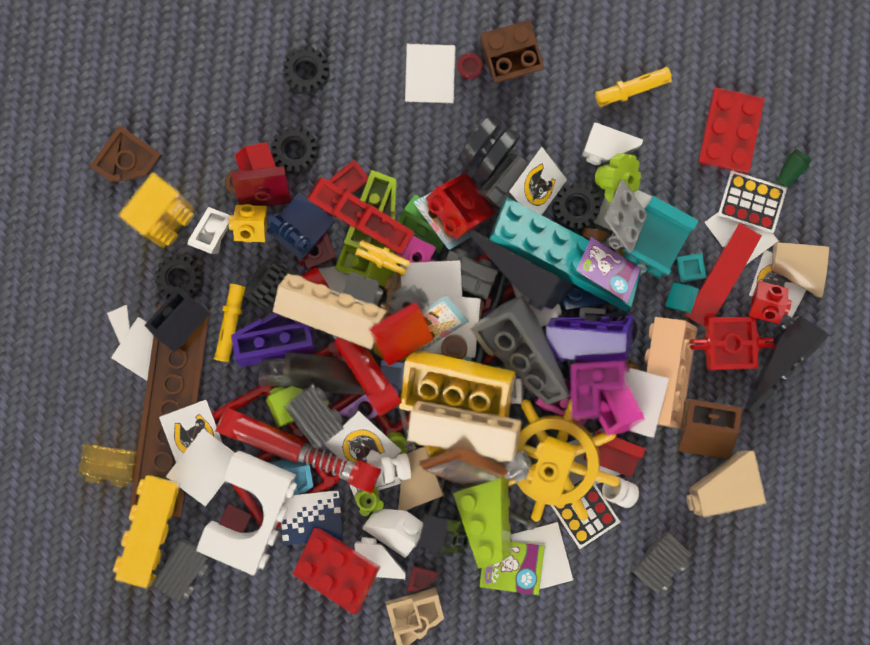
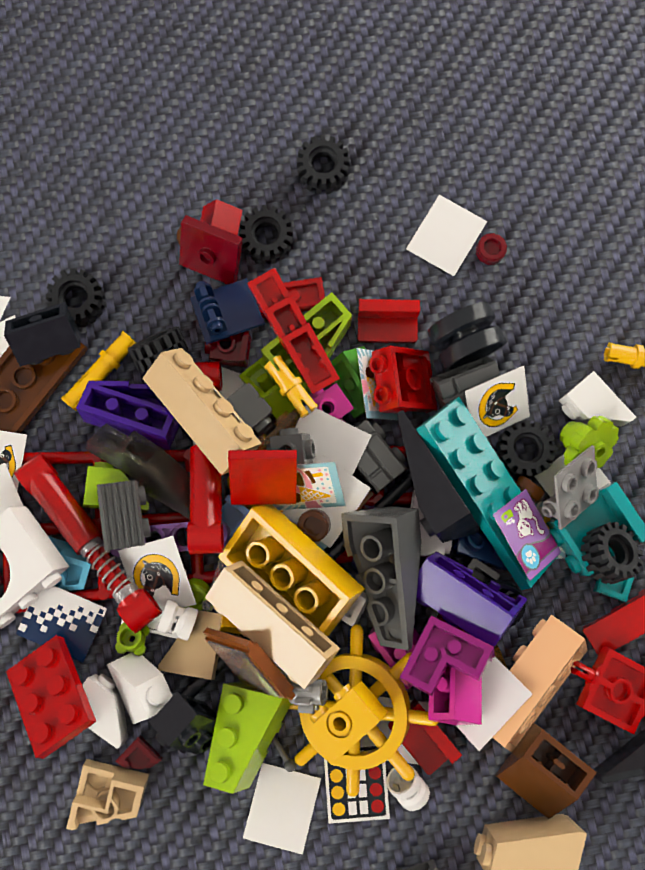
camera: 30 degrees right, 5 degrees down
(125, 157) = (95, 152): reddish brown plate -> none
(158, 211) = (83, 209): yellow brick -> none
(210, 231) = (133, 267): white slope -> none
(249, 223) = (176, 280): yellow brick -> none
(423, 166) = (388, 321): none -> red panel
(511, 51) = (544, 252): reddish brown slope -> none
(518, 572) = (250, 811): sticker -> none
(668, 257) = (600, 559): none -> black tyre
(682, 297) = (589, 609): teal tile -> none

